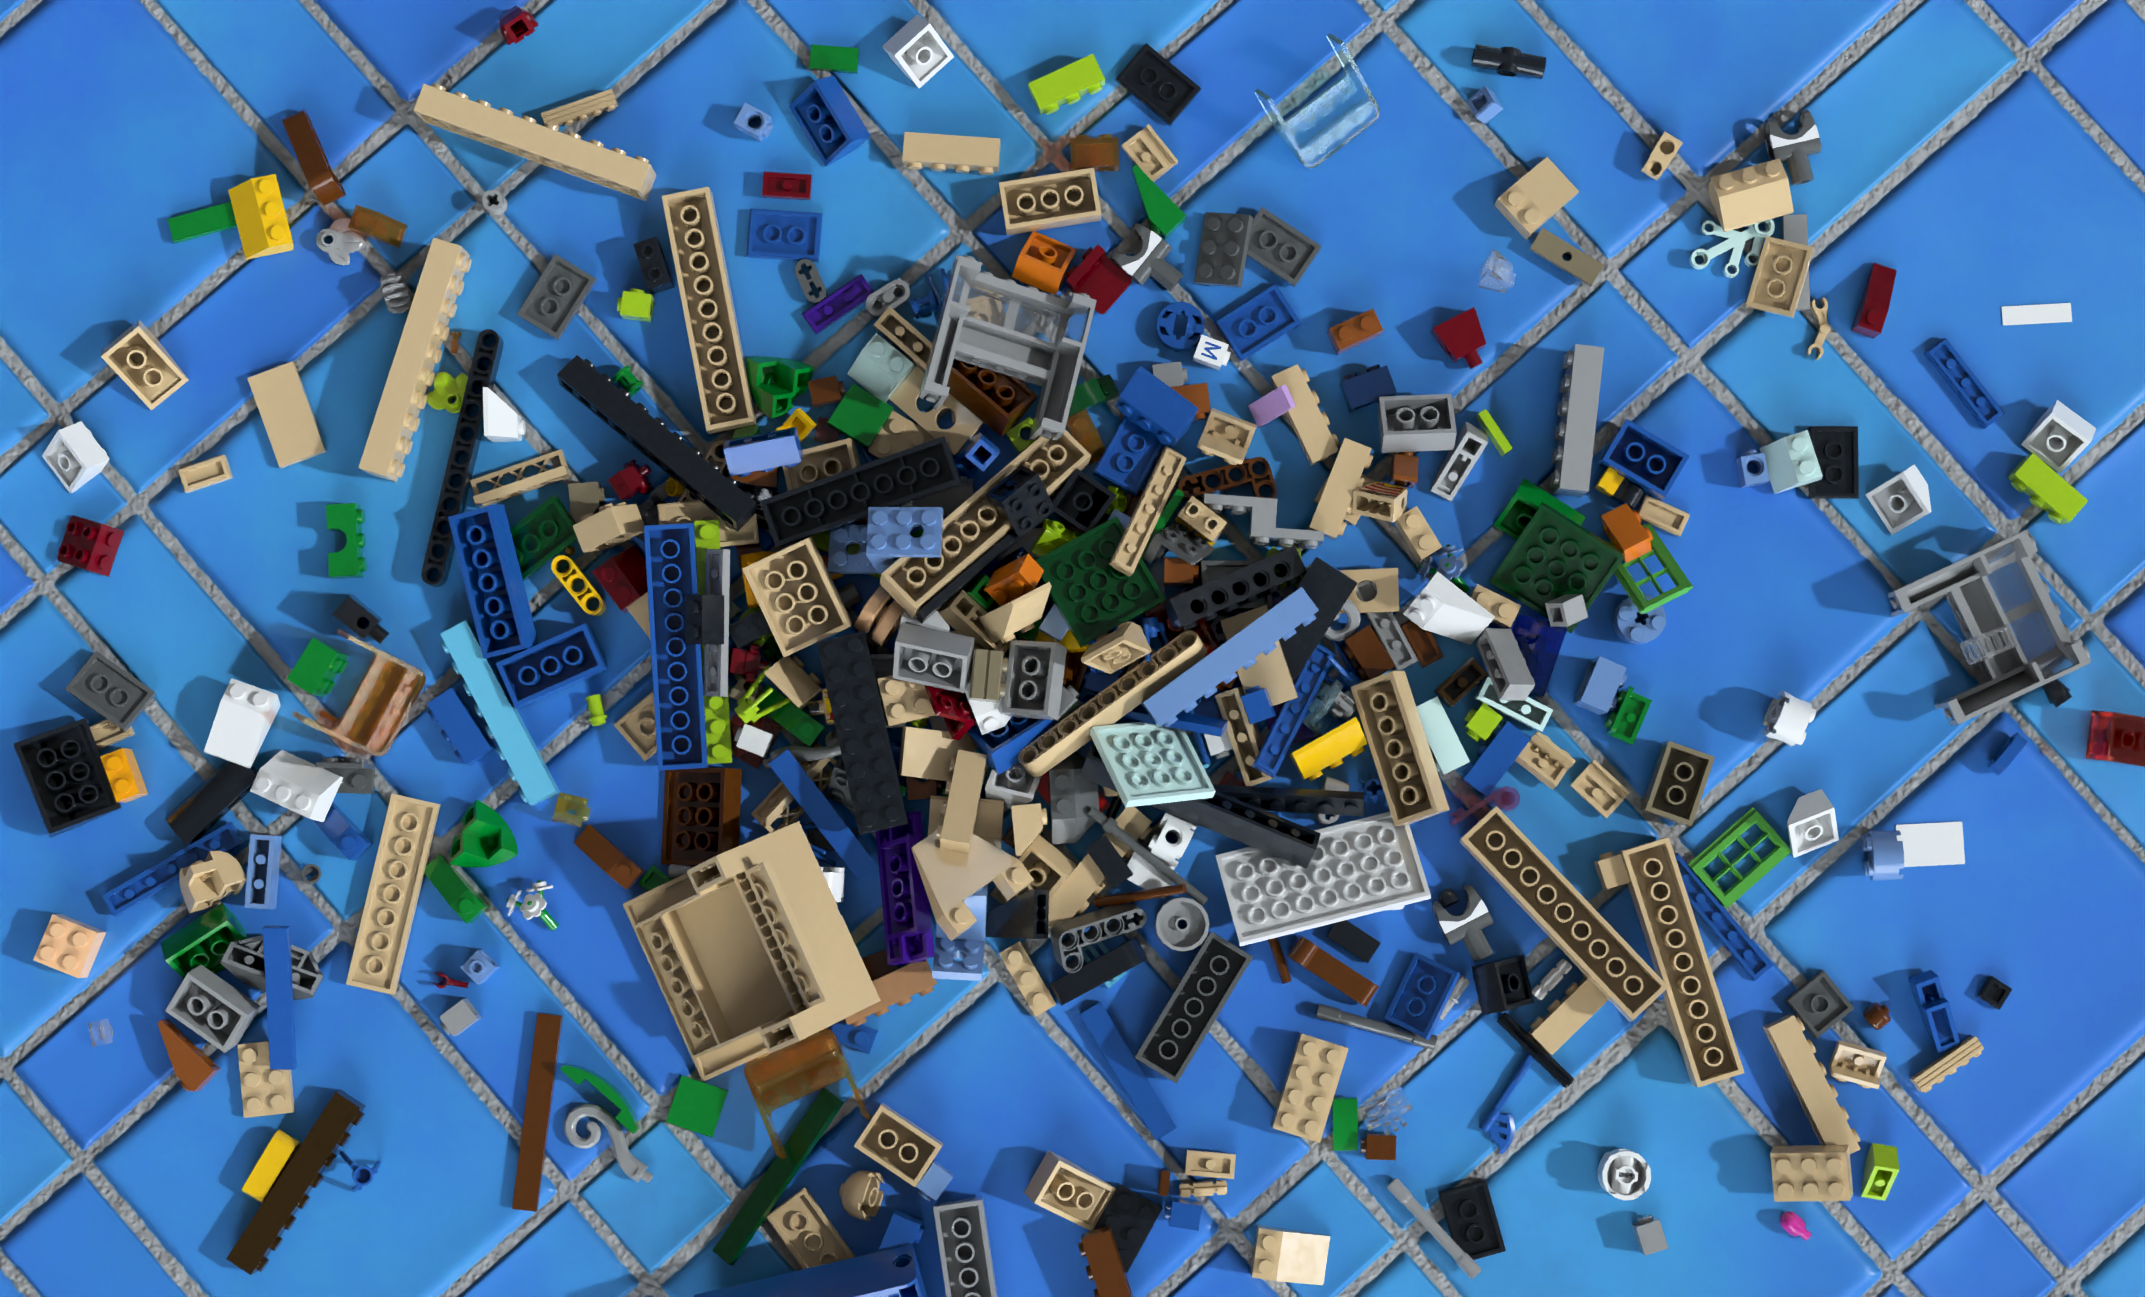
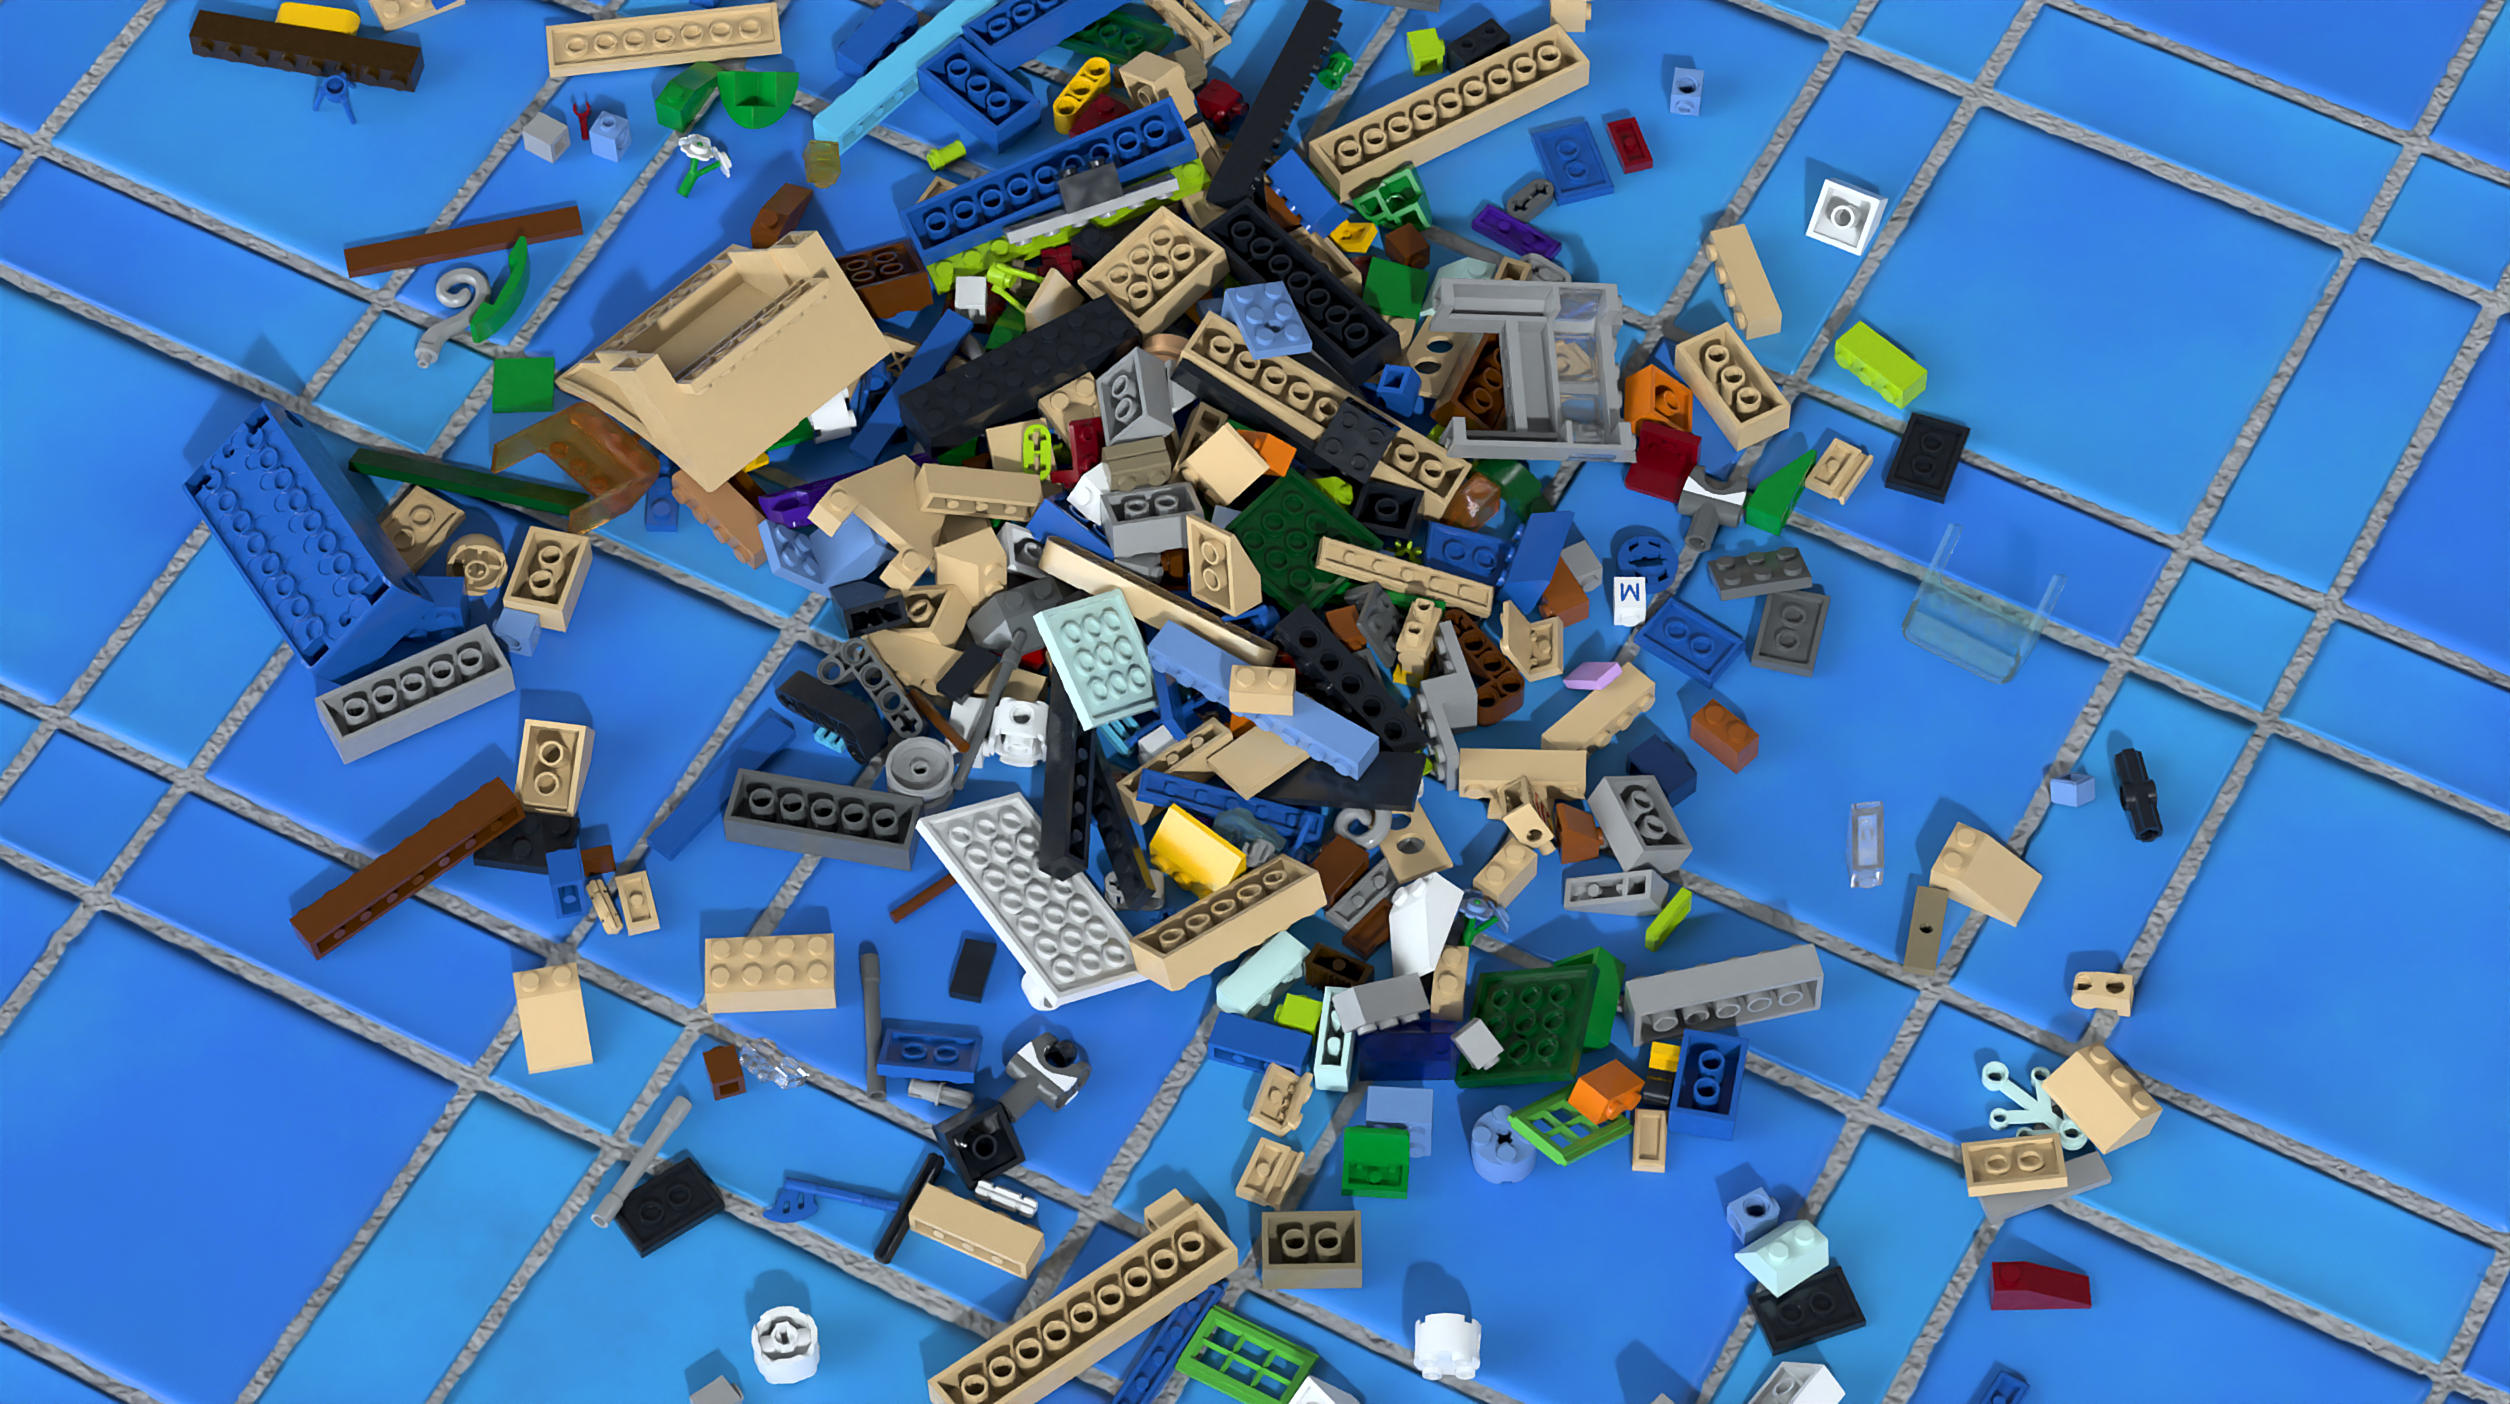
camera: 70 degrees right, 30 degrees down
(829, 120) = (1726, 159): blue slope -> none
(834, 59) = (1799, 146): green tile -> none
(935, 738) = (1044, 451): none -> lime beam
(1027, 978) = (795, 653): tan plate -> none
(1095, 153) = (1812, 416): clear orange brick -> none
(1240, 658) = (1262, 690): none -> tan brick
(1258, 704) = (1217, 752): blue brick -> none
(1332, 970) = (926, 947): reddish brown beam -> none
(1345, 1124) = (739, 1027): green slope -> none
(1461, 337) = (1772, 850): dark red torso -> none
(1505, 799) = (1211, 1057): clear pink door -> none
(1563, 914) = (1091, 1165): tan brick -> none
(1795, 147) = (2190, 1135): dark grey connector -> none
(1824, 328) = (1974, 1245): tan piece -> none

